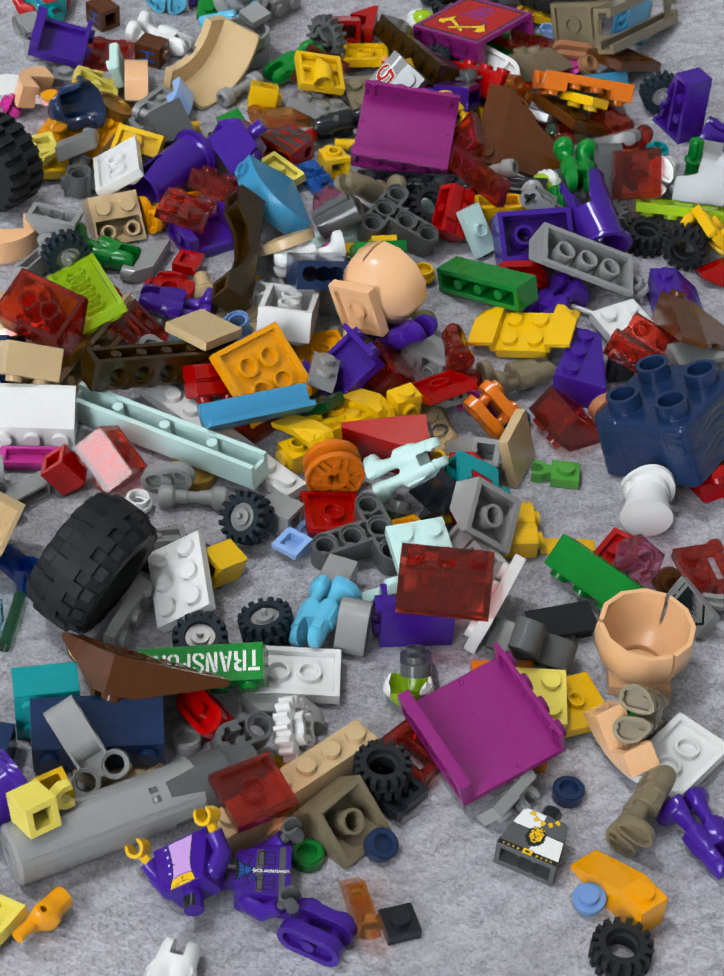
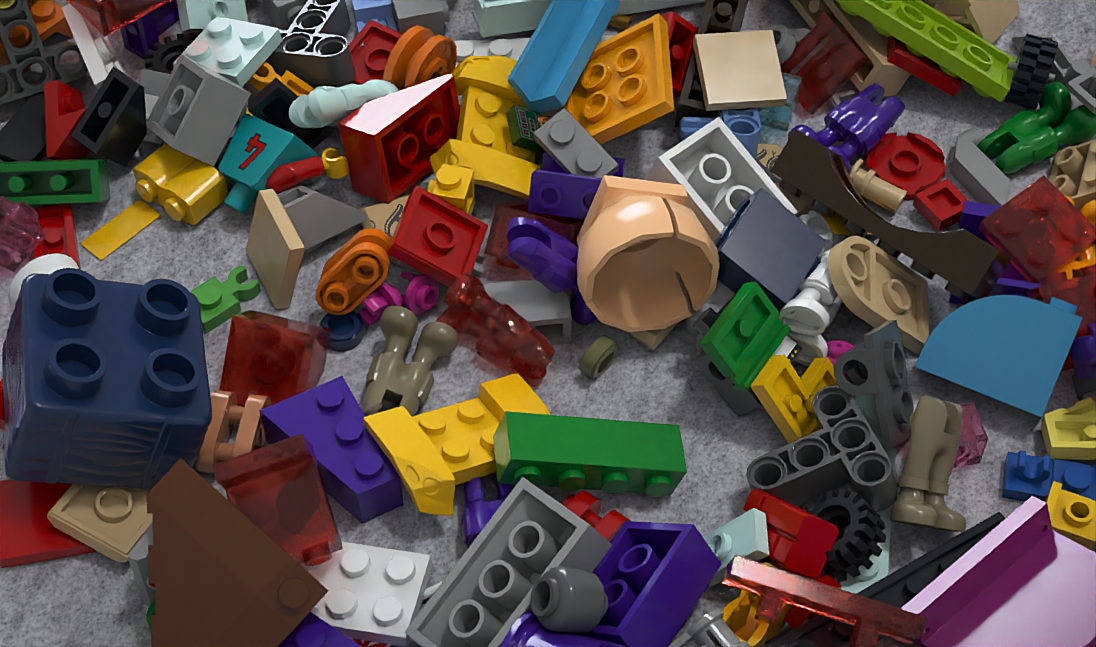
camera: 135 degrees right, 10 degrees up
(427, 271) = (707, 441): yellow plate -> none
(539, 556) = (114, 119): none -> black slope
(545, 585) = (62, 113): none -> red slope
(576, 221) = (569, 600): none -> dark grey head

